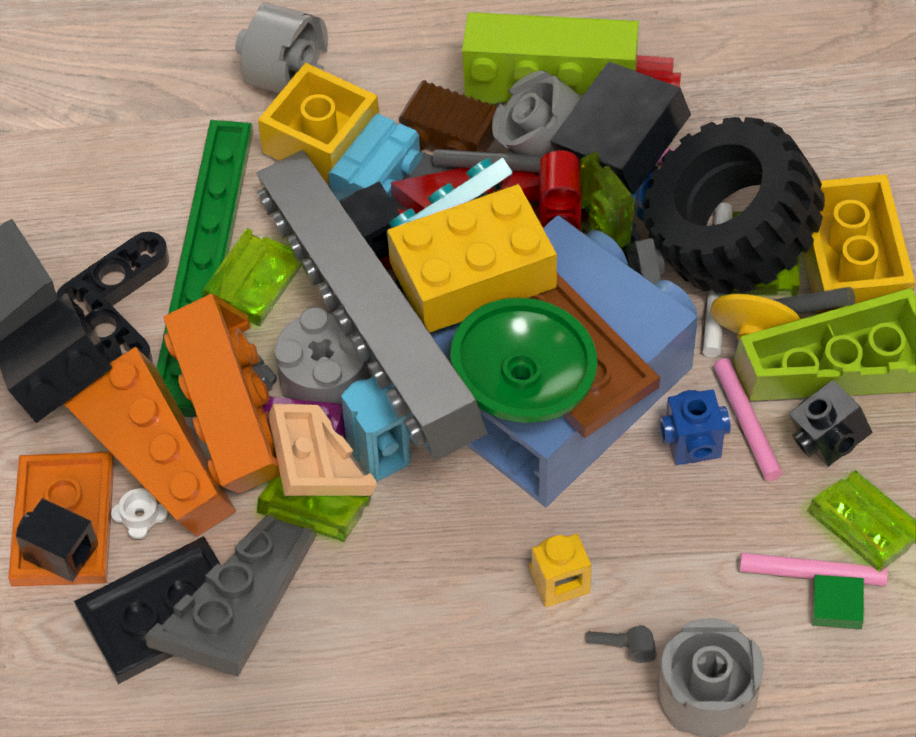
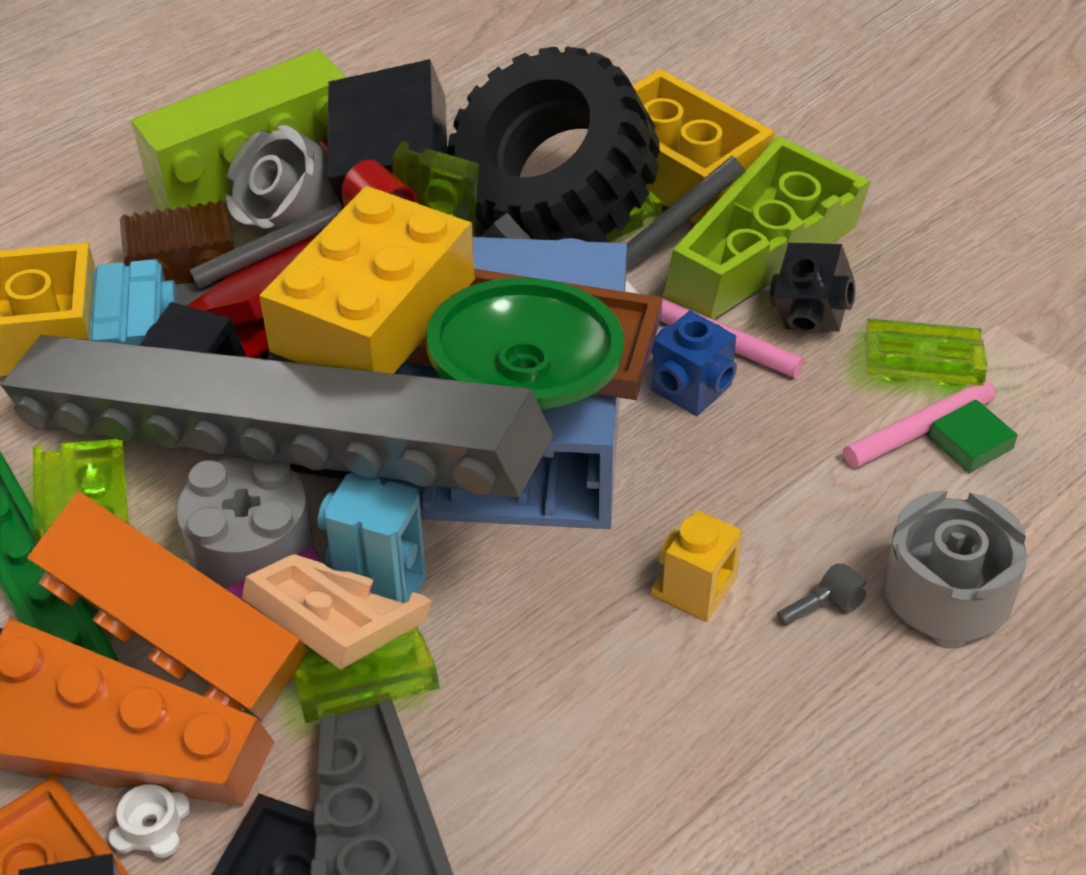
camera: 40 degrees left, 10 degrees down
(481, 178) = (303, 224): wing -> none
(750, 313) = (655, 233): yellow dish -> none

